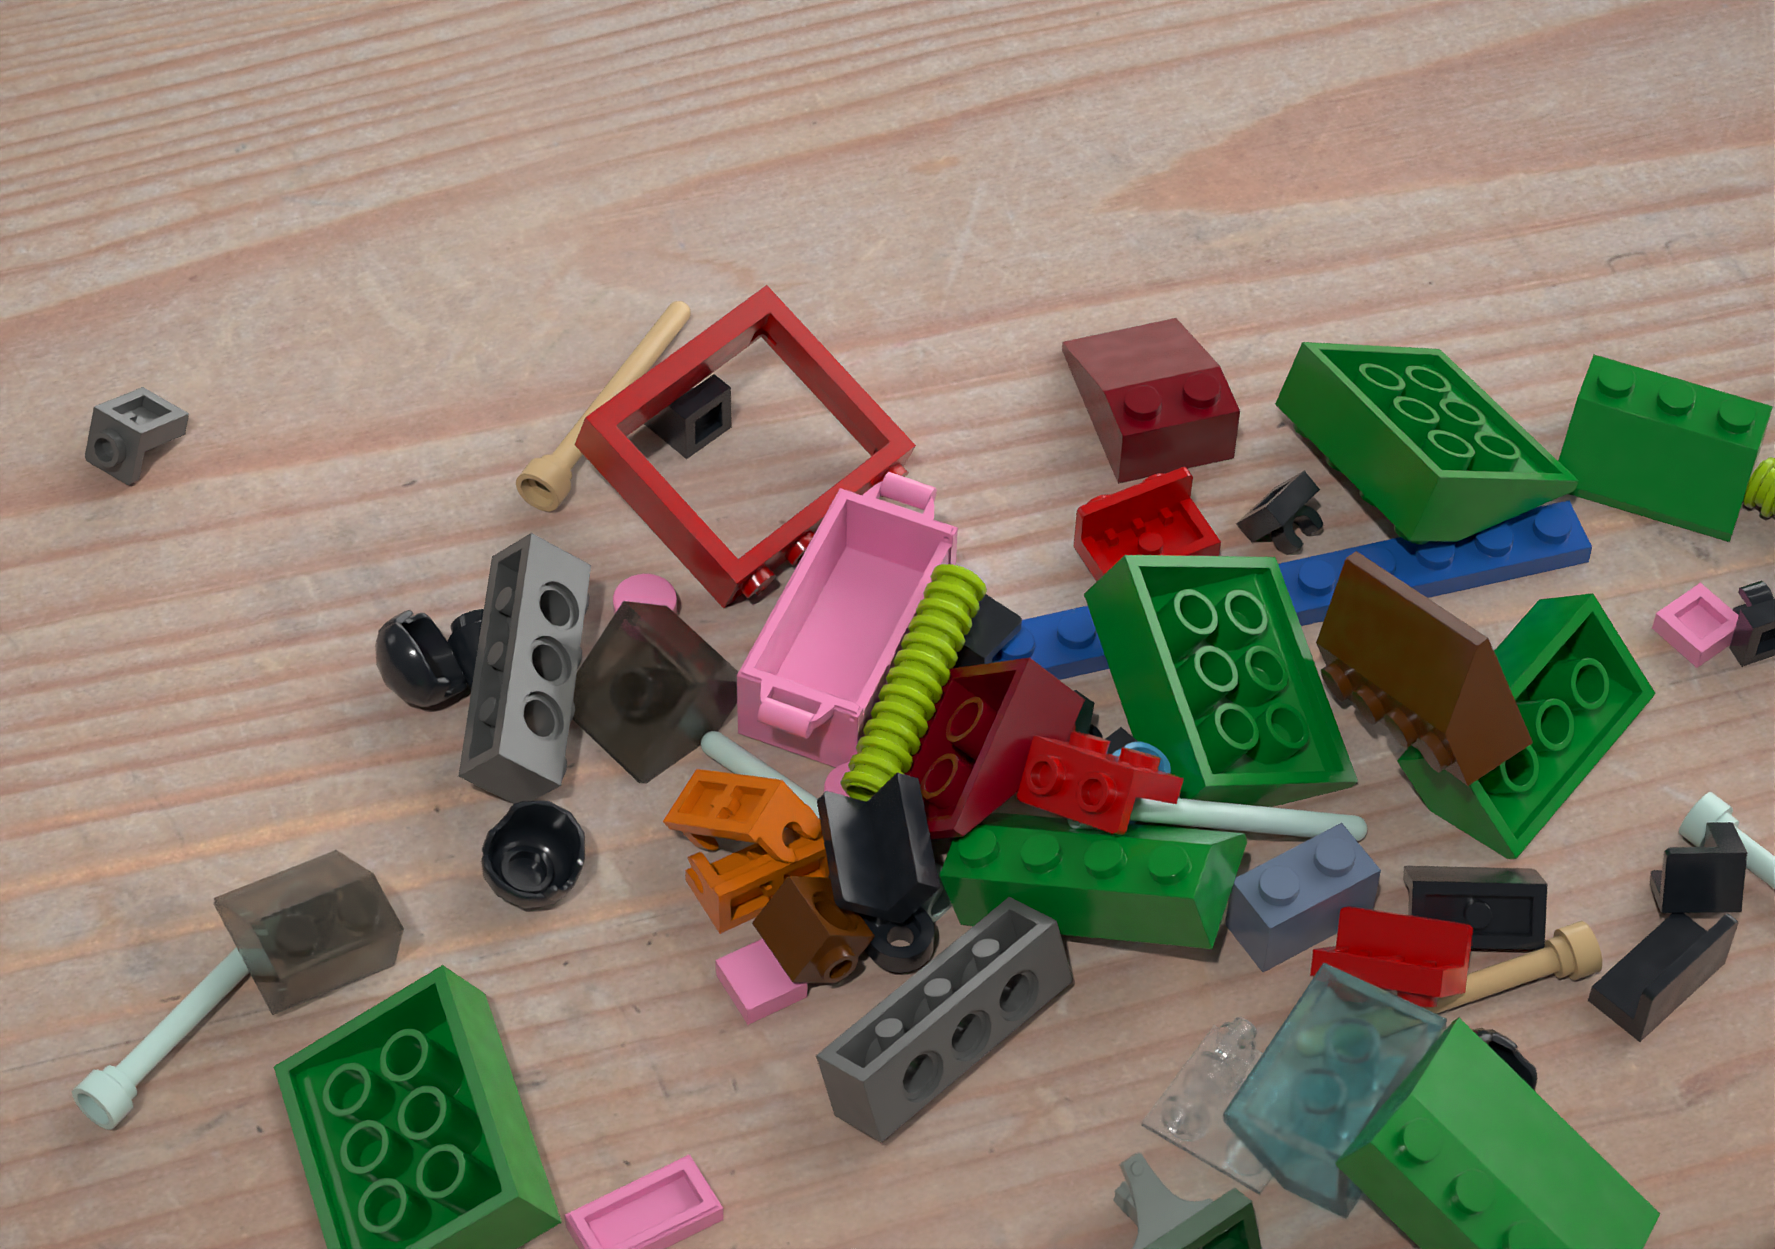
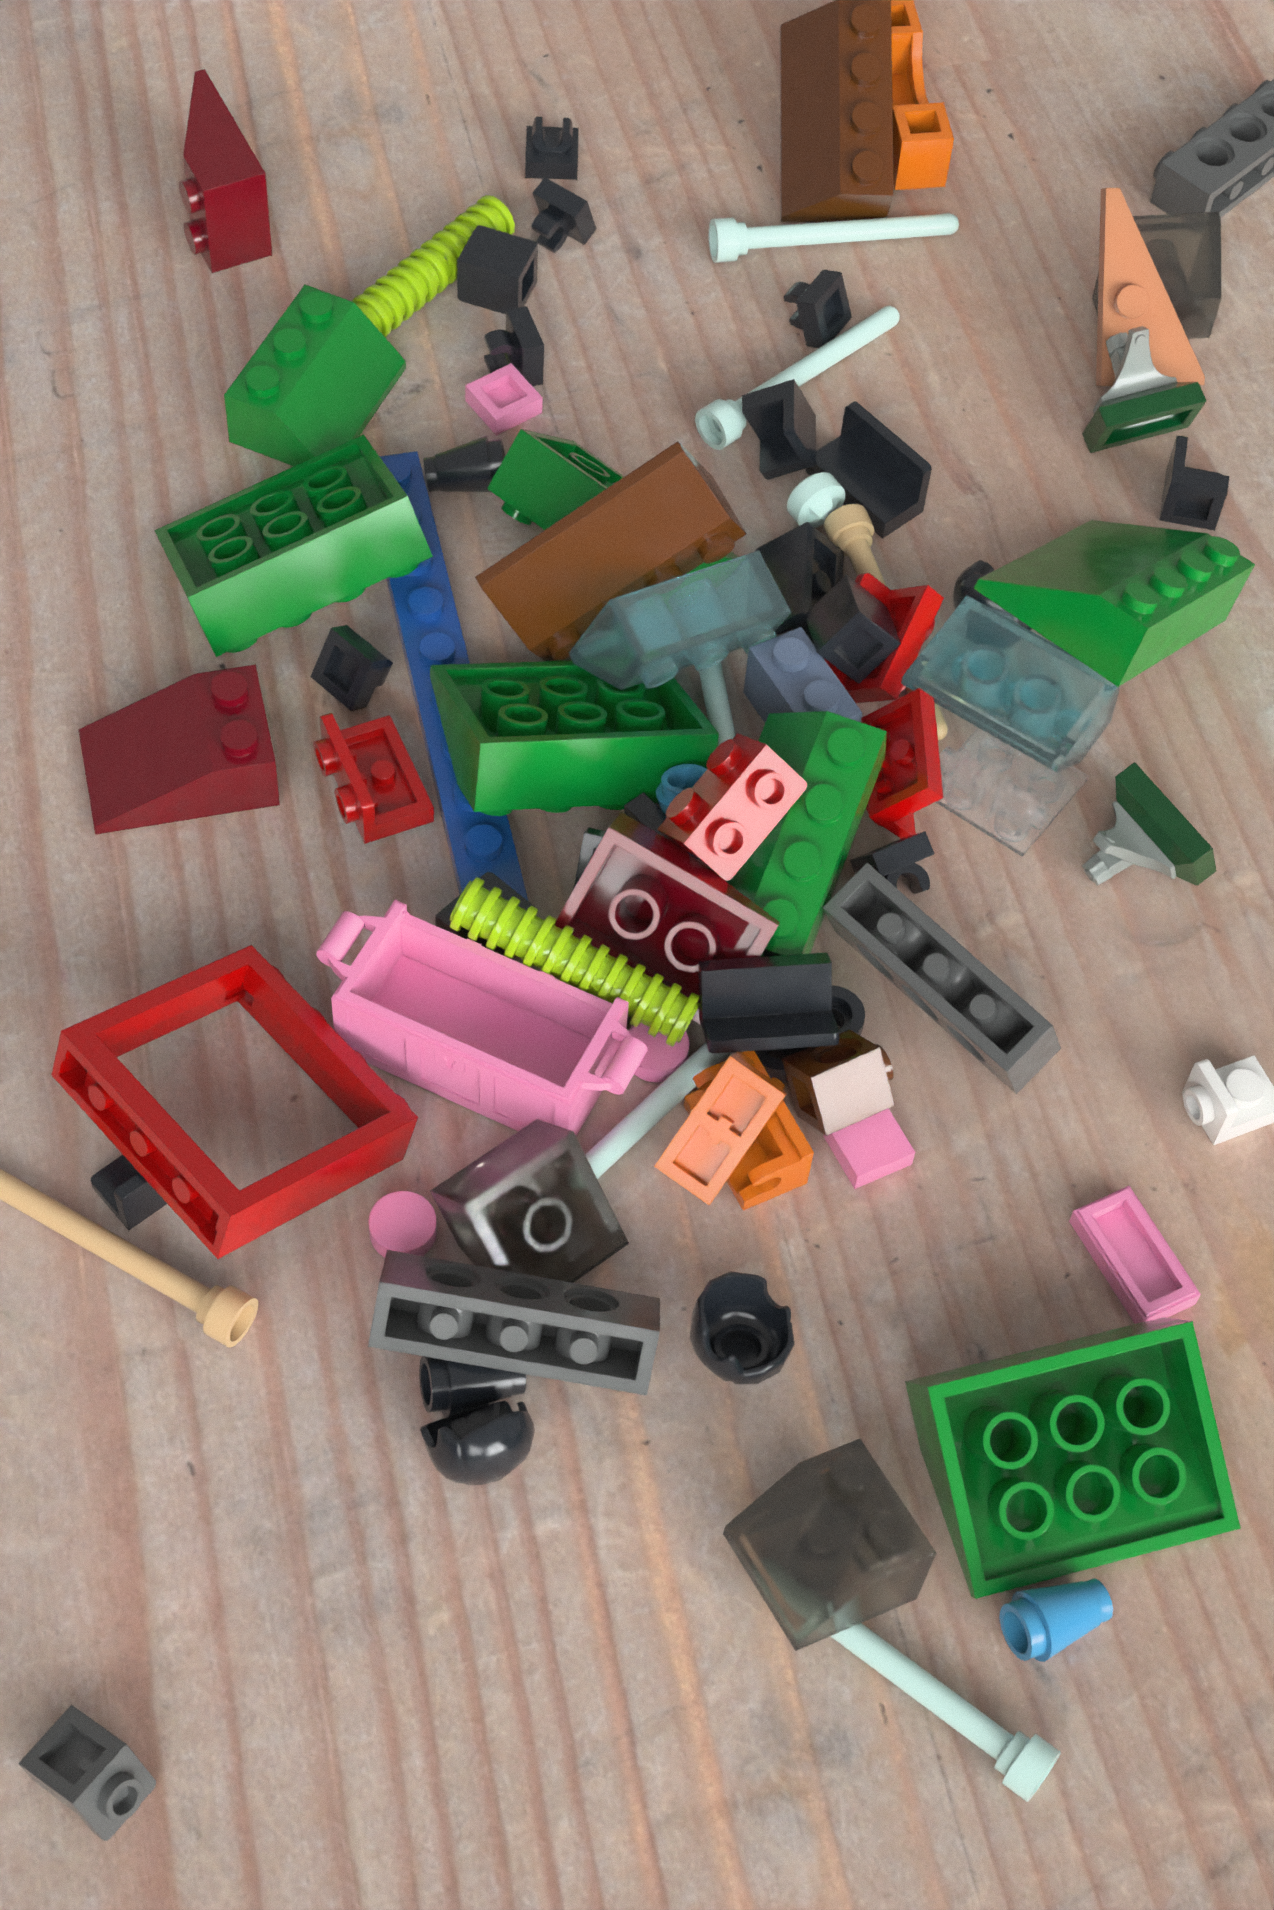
camera: 90 degrees left, 5 degrees up
(246, 1120) = (1053, 1617): none -> dark azure cone
(1107, 989) = (900, 859): none -> black tile
(1223, 986) = (911, 765): none -> red bracket
(1355, 759) = (683, 623): none -> clear light blue slope
(1390, 921) = (852, 629): none -> black panel
(1574, 575) = (465, 466): none -> black cone
(1606, 911) = (815, 499): none -> light aqua tile

